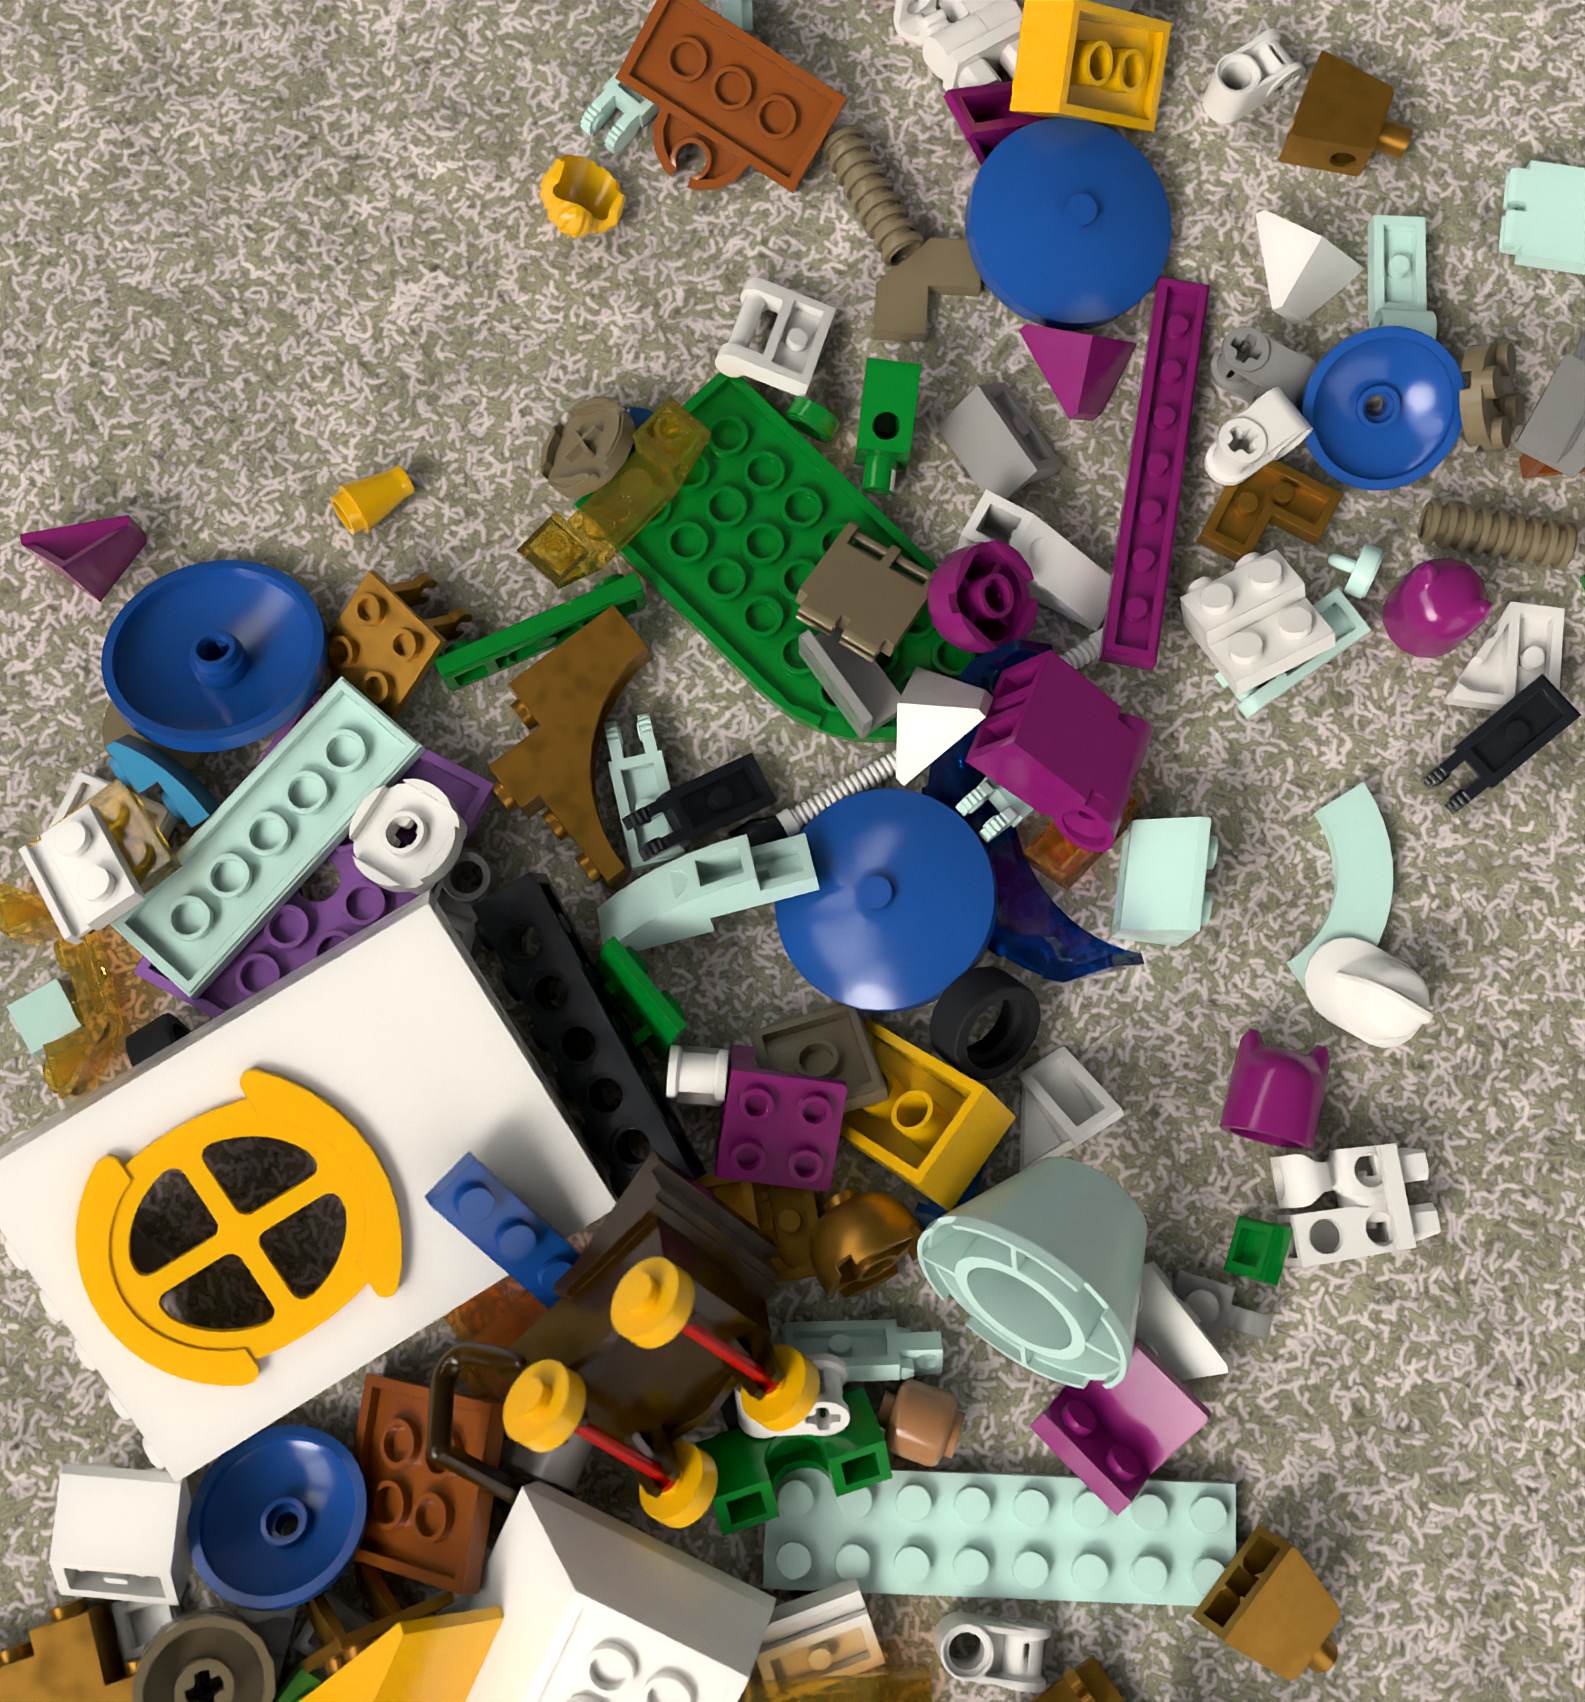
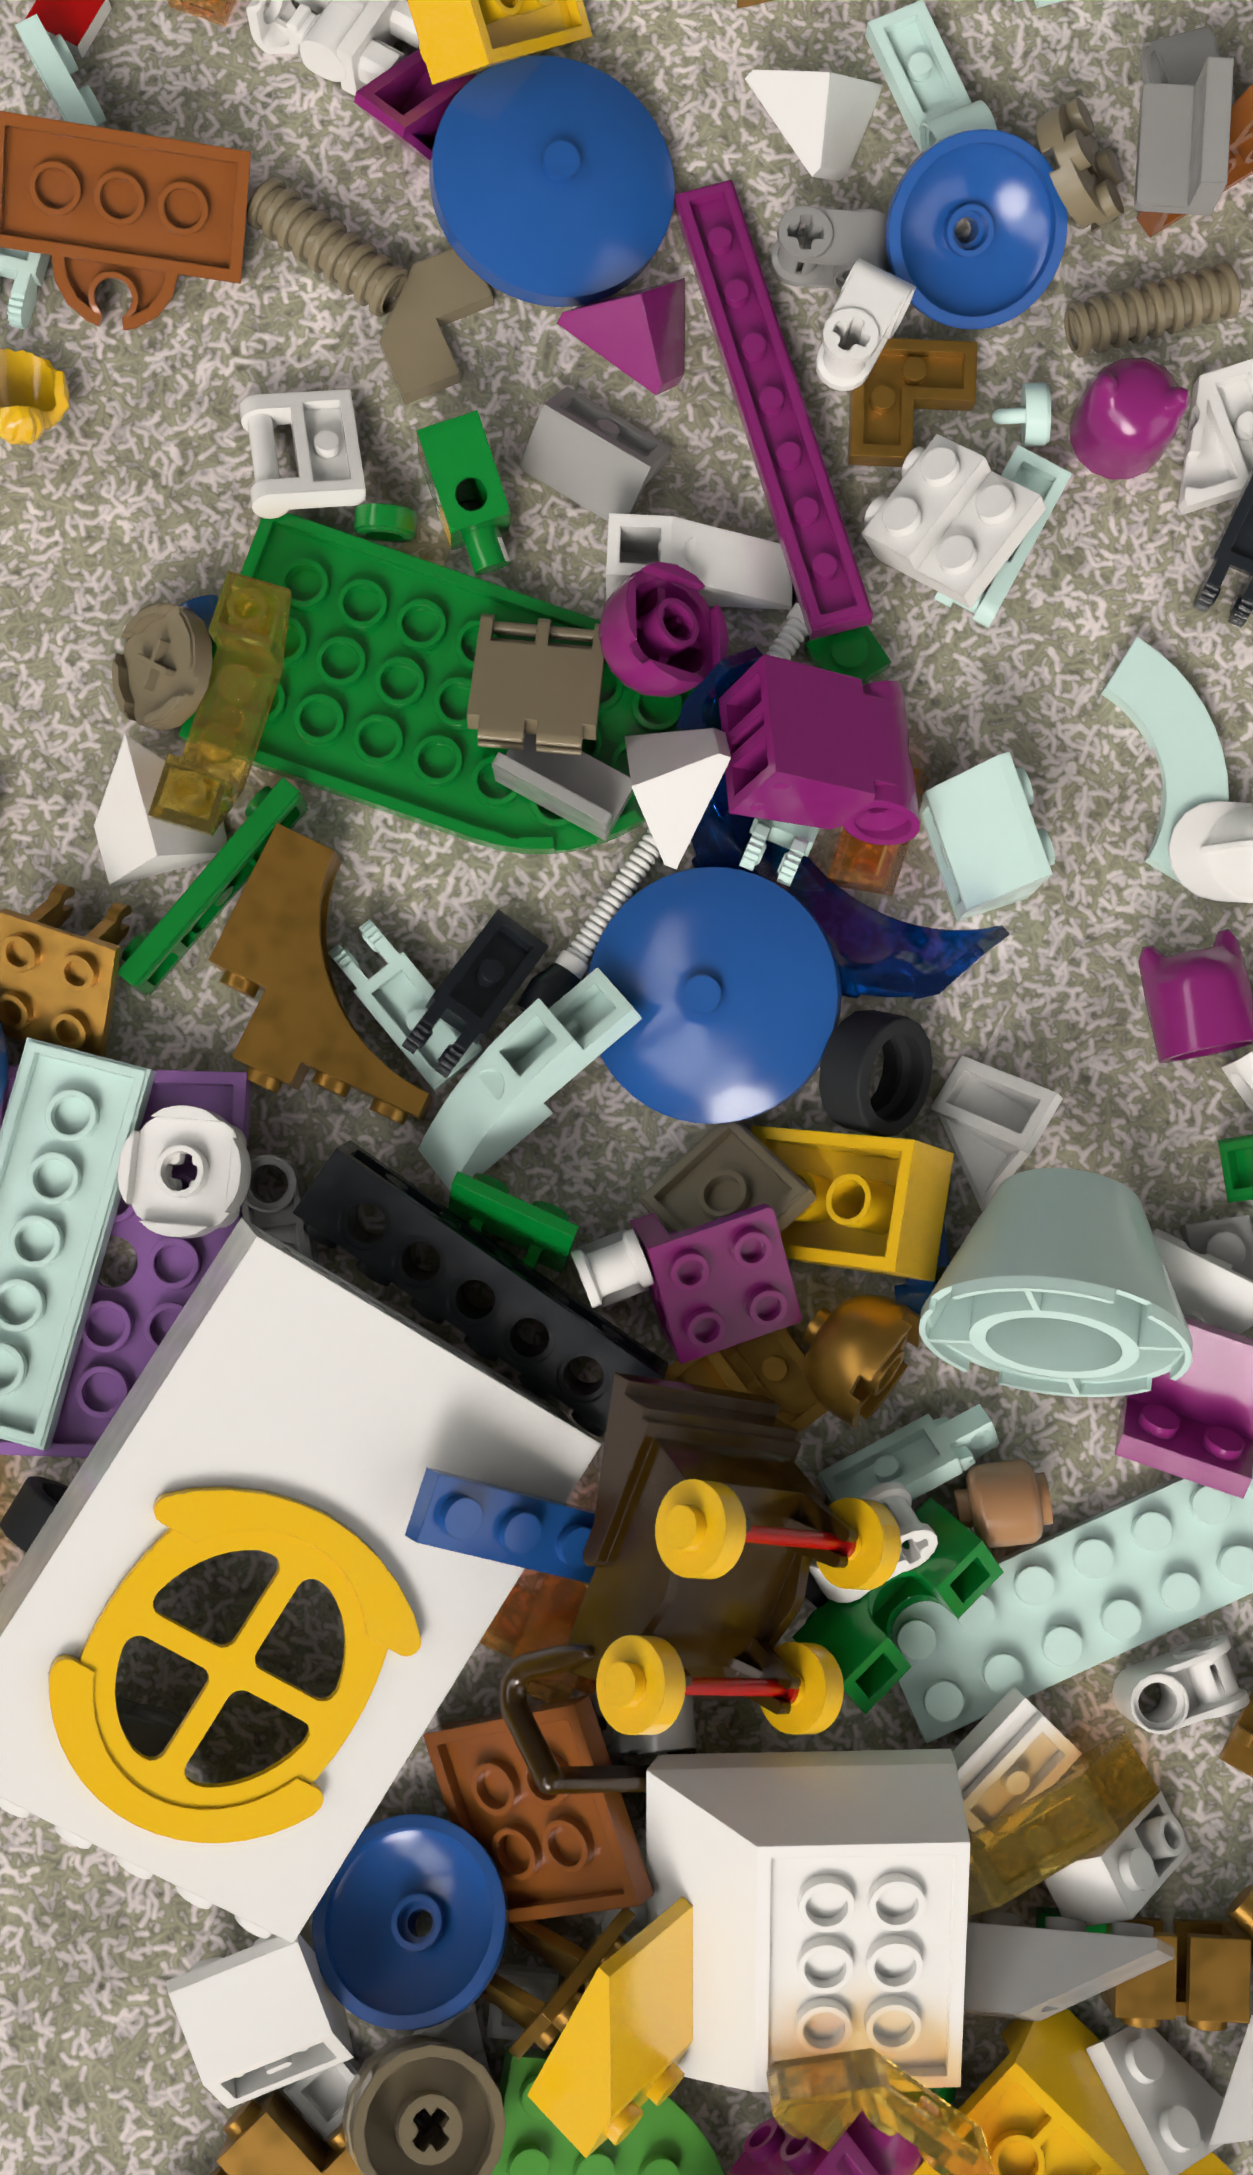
camera: 30 degrees left, 5 degrees up
(499, 570) = (129, 839): none -> white slope
(1126, 686) = (849, 653): none -> green plate

